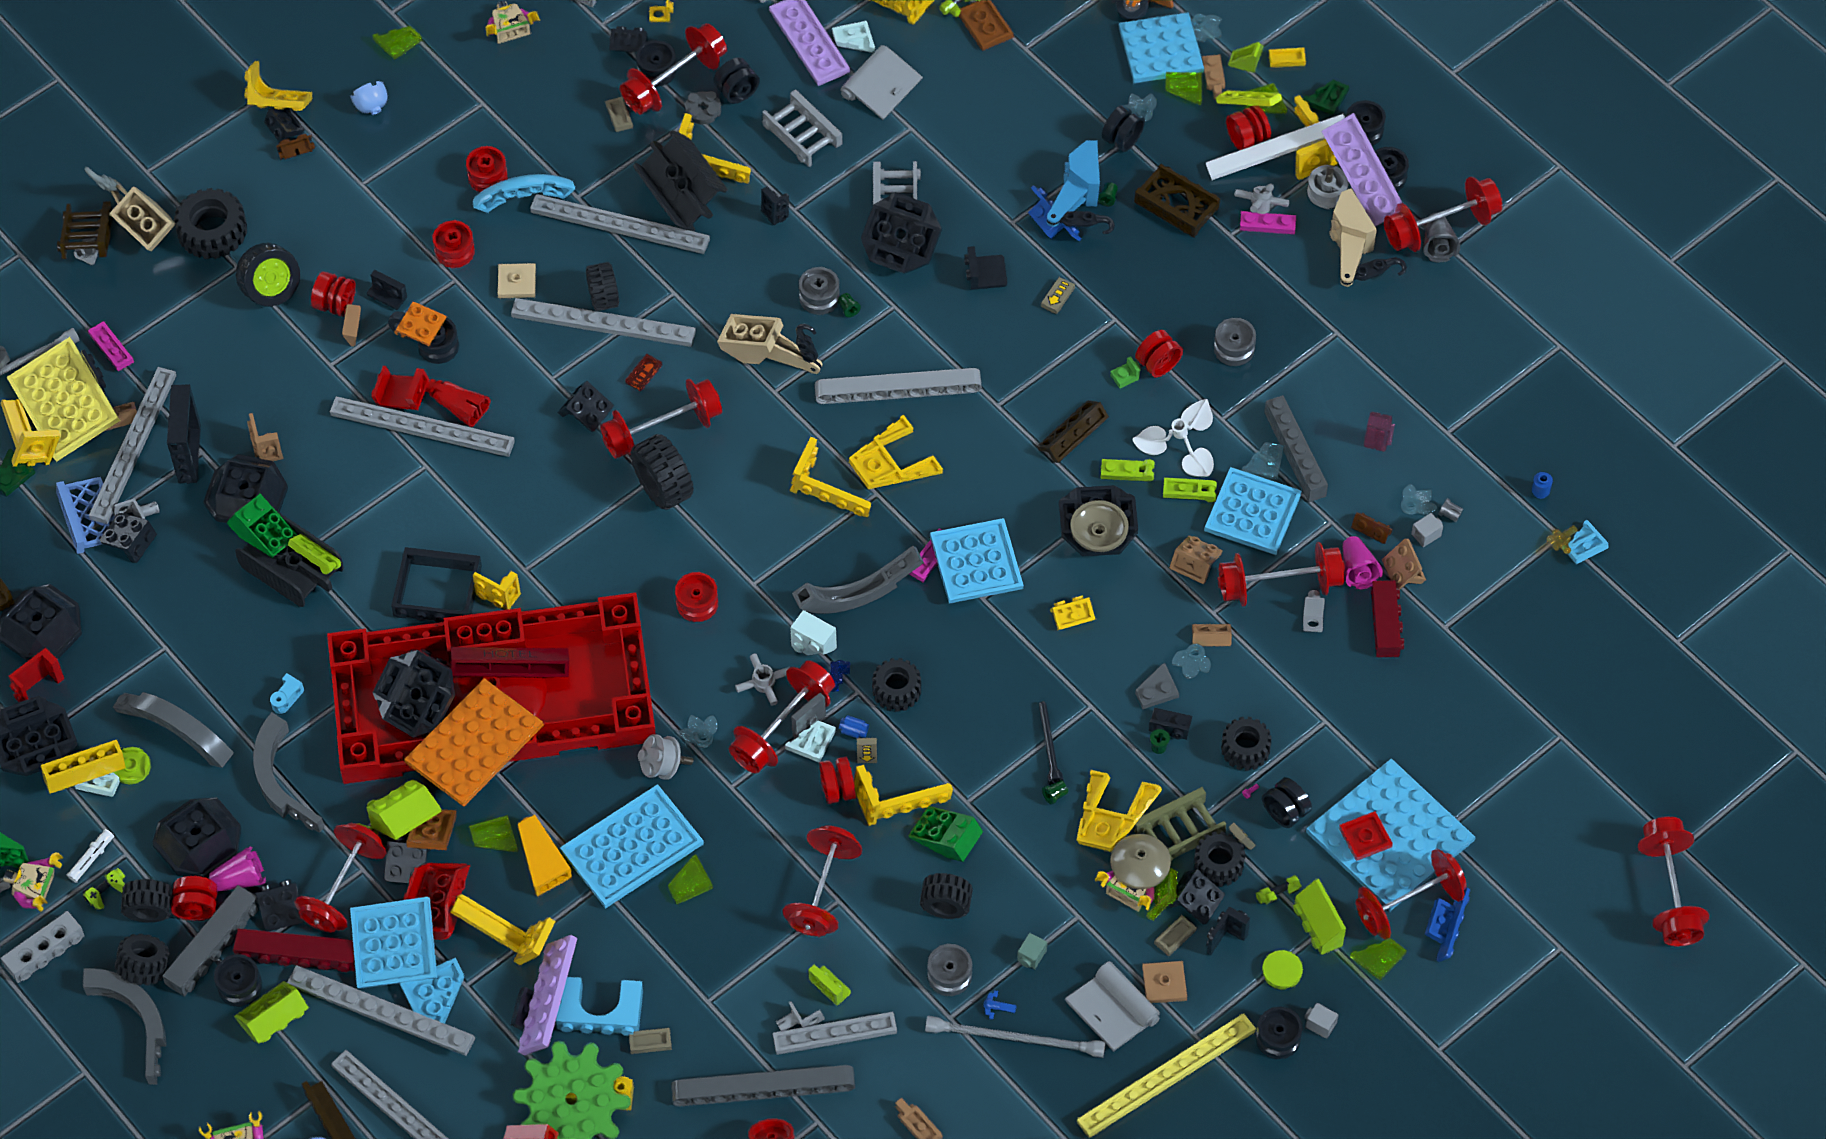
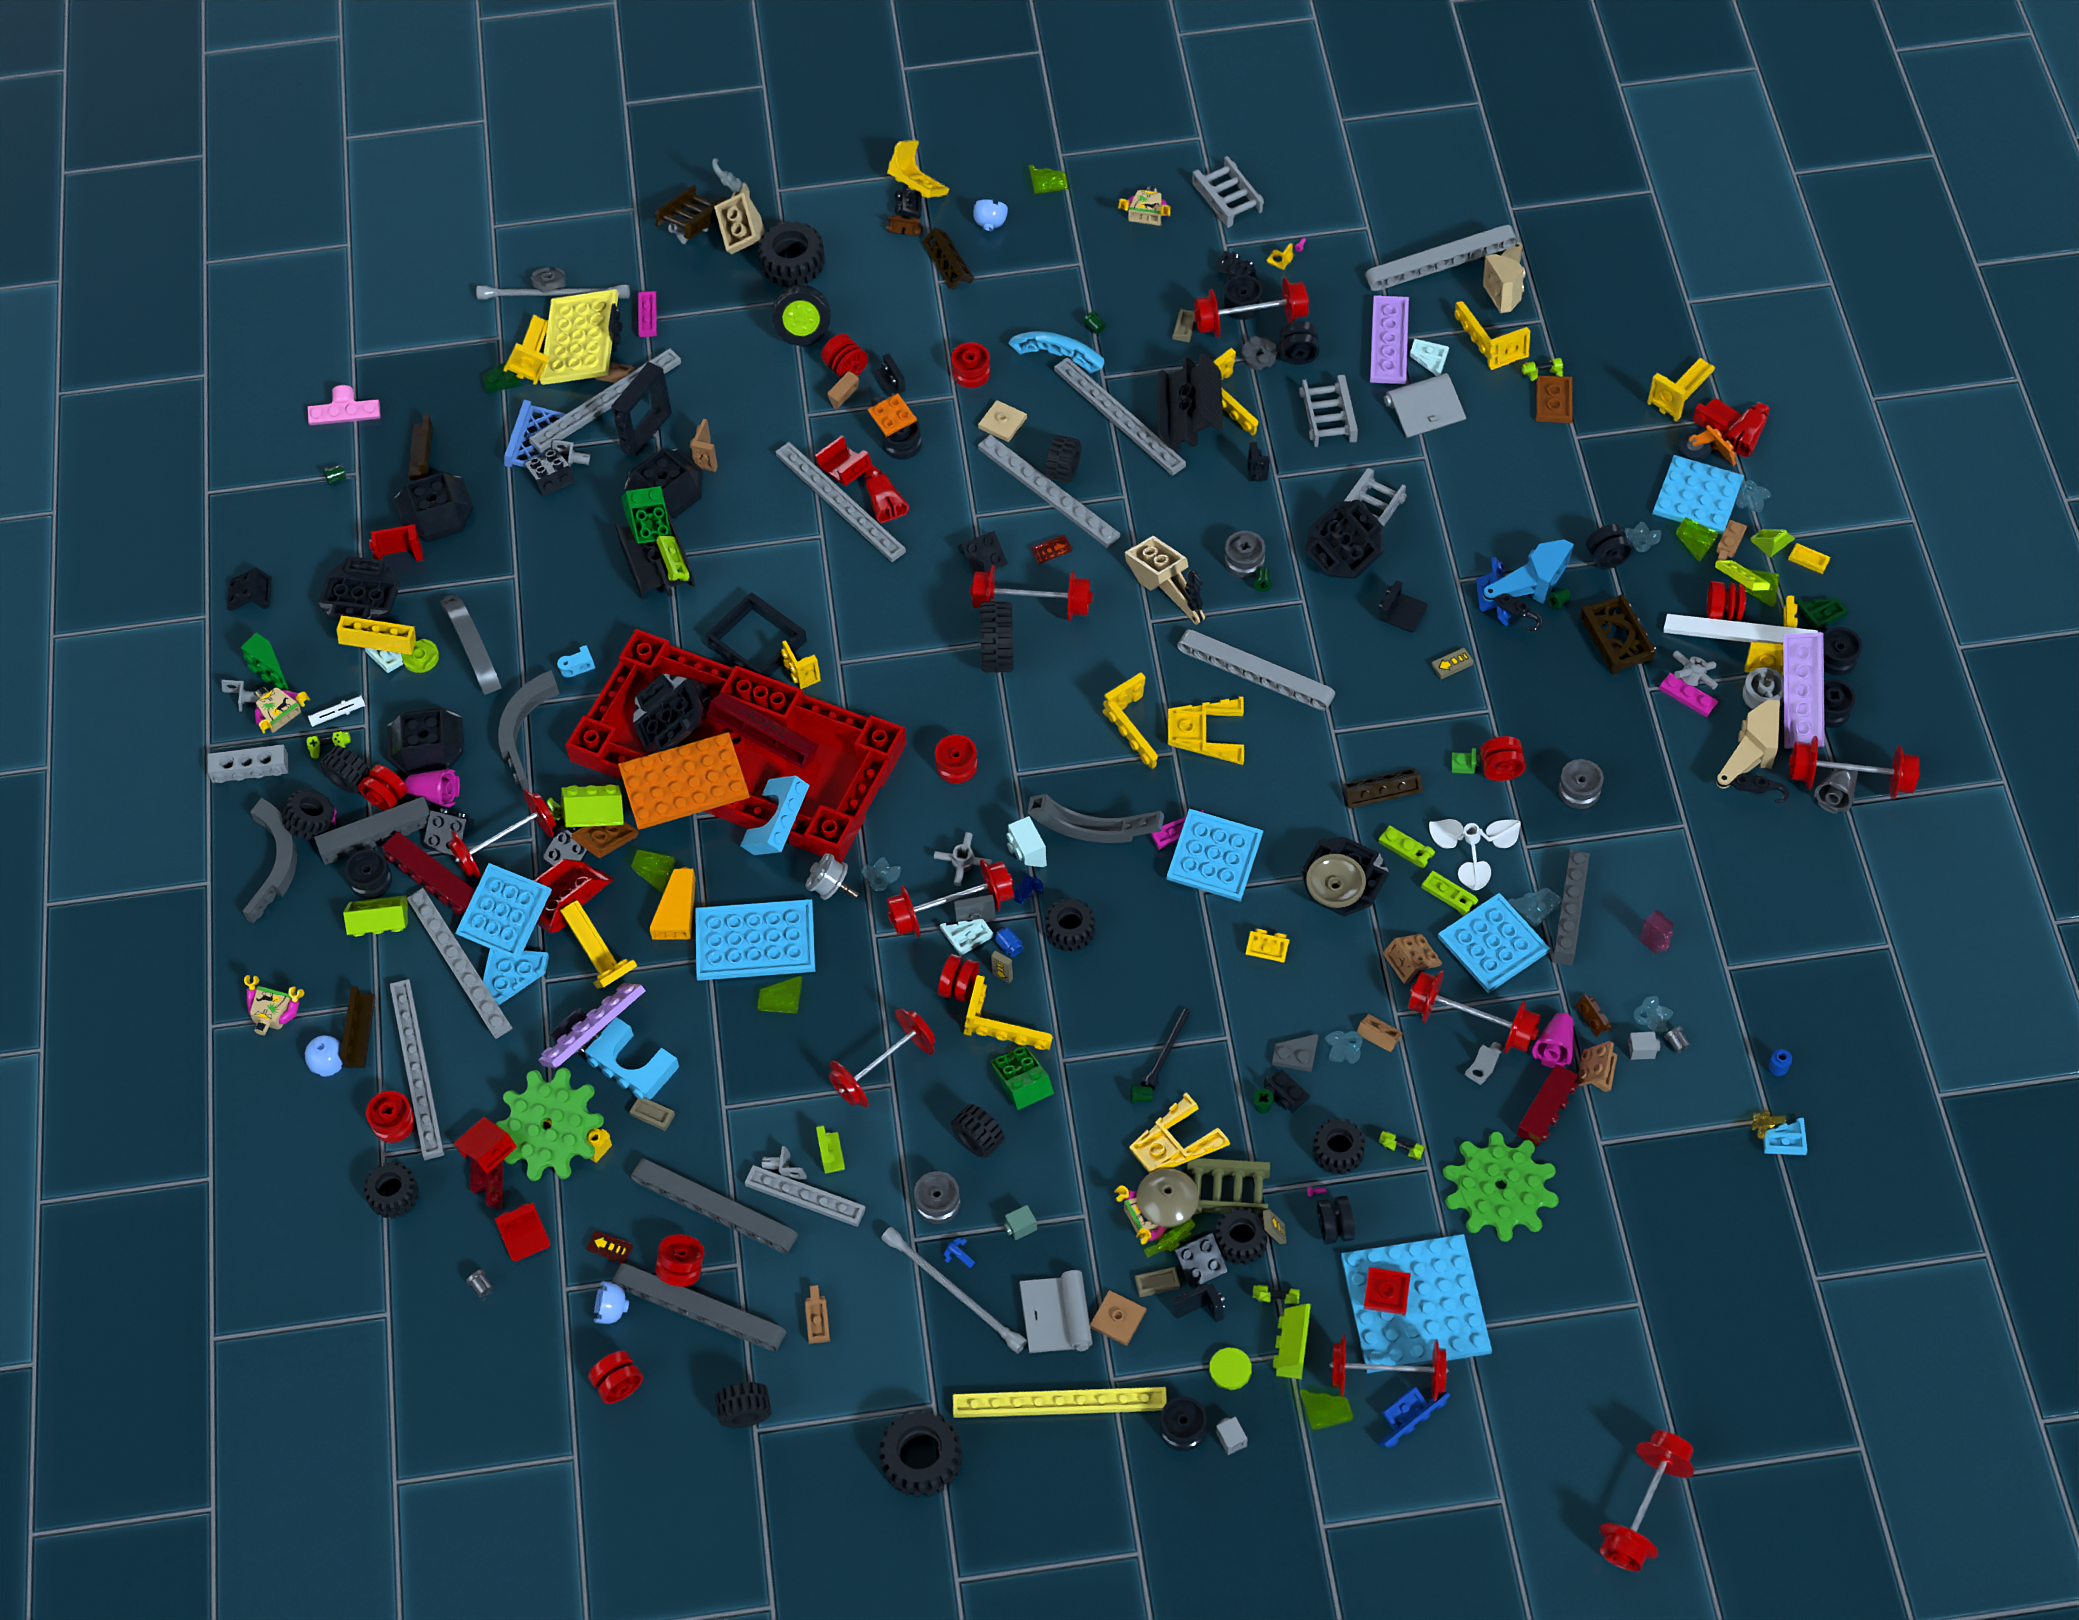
camera: 35 degrees right, 0 degrees up
(360, 151) = (950, 254): none -> dark brown fence
(486, 167) = (1041, 314): red wheel -> none
(537, 151) = (1094, 322): none -> dark green bush
(590, 744) = (771, 838): none -> medium azure arch
(1283, 718) = (1390, 1142): none -> lime piece
(1389, 723) = (1497, 1206): none -> bright green plate

